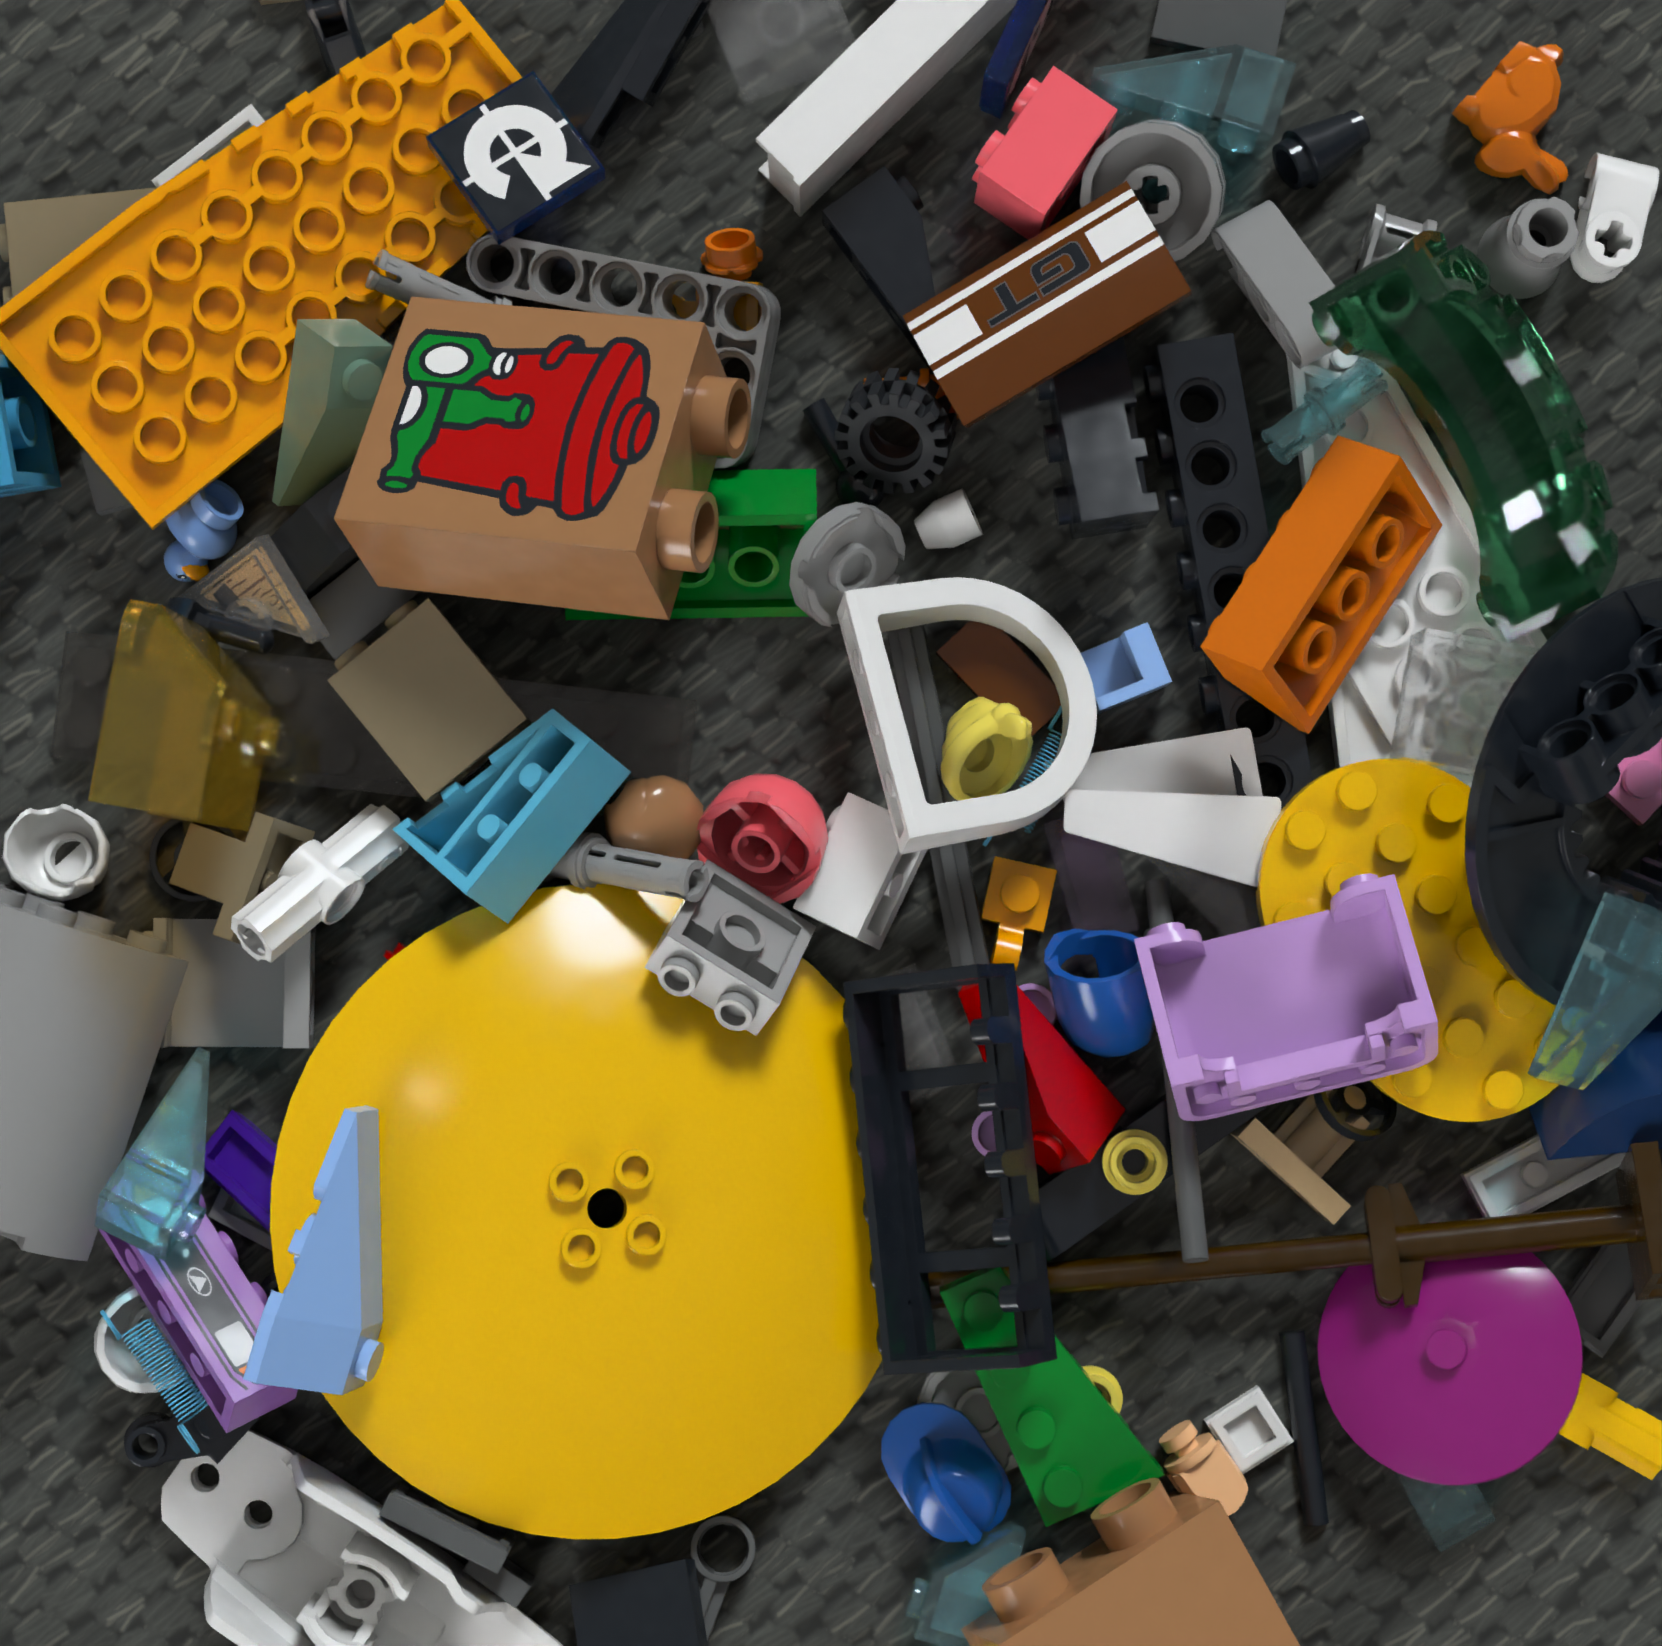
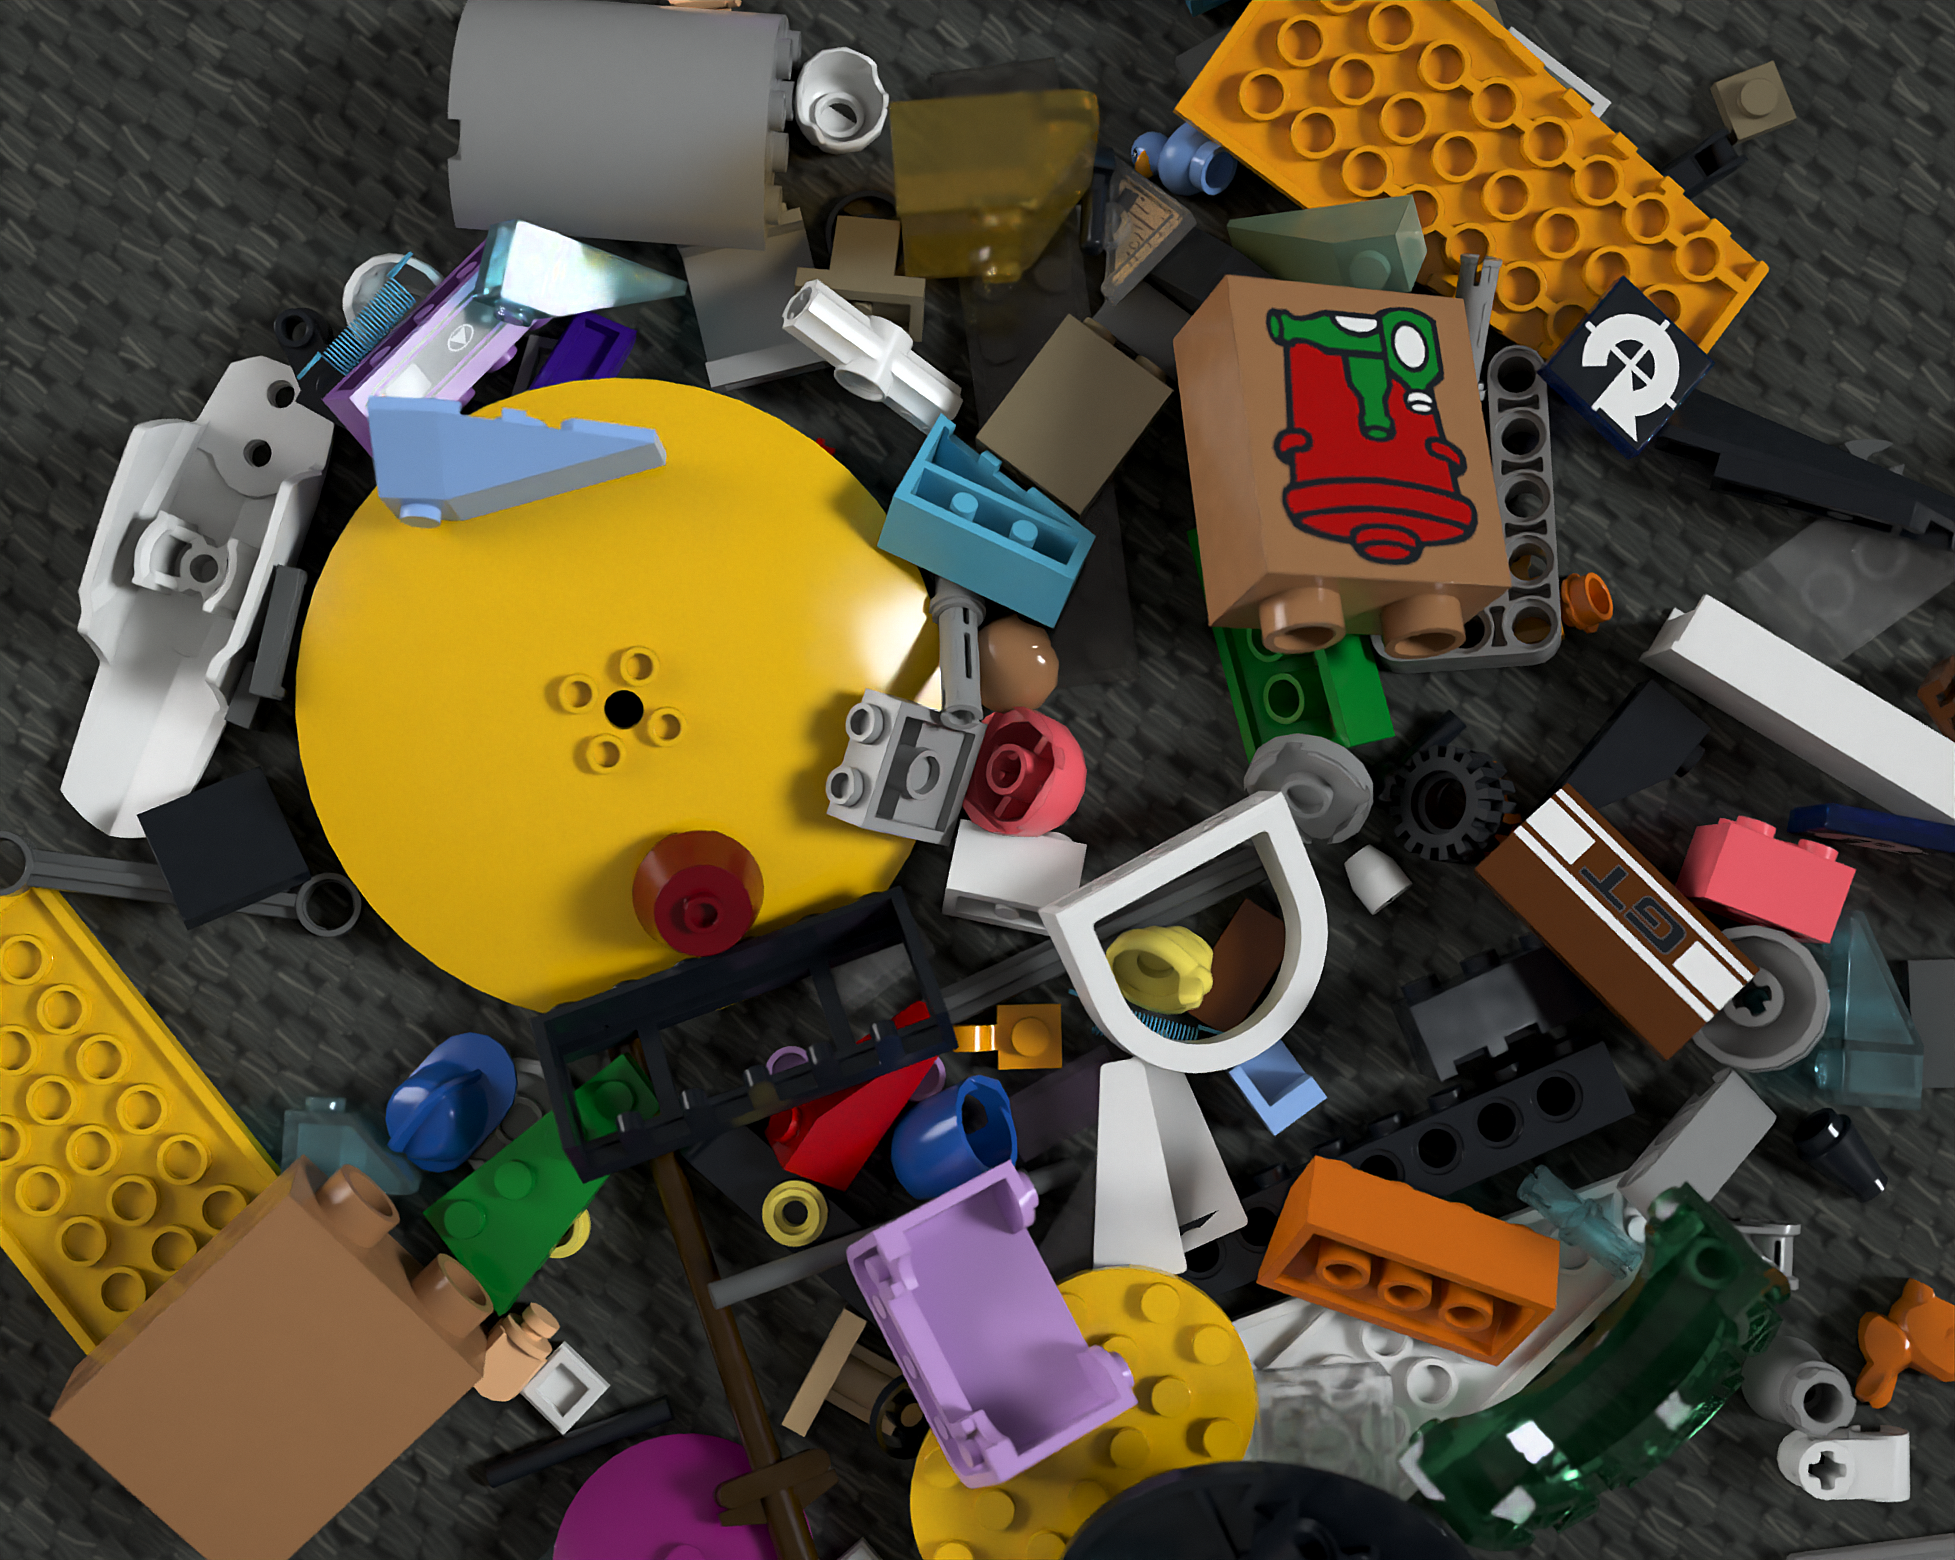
camera: 80 degrees right, 0 degrees up
(802, 1179) = (698, 892): none -> dark red cone

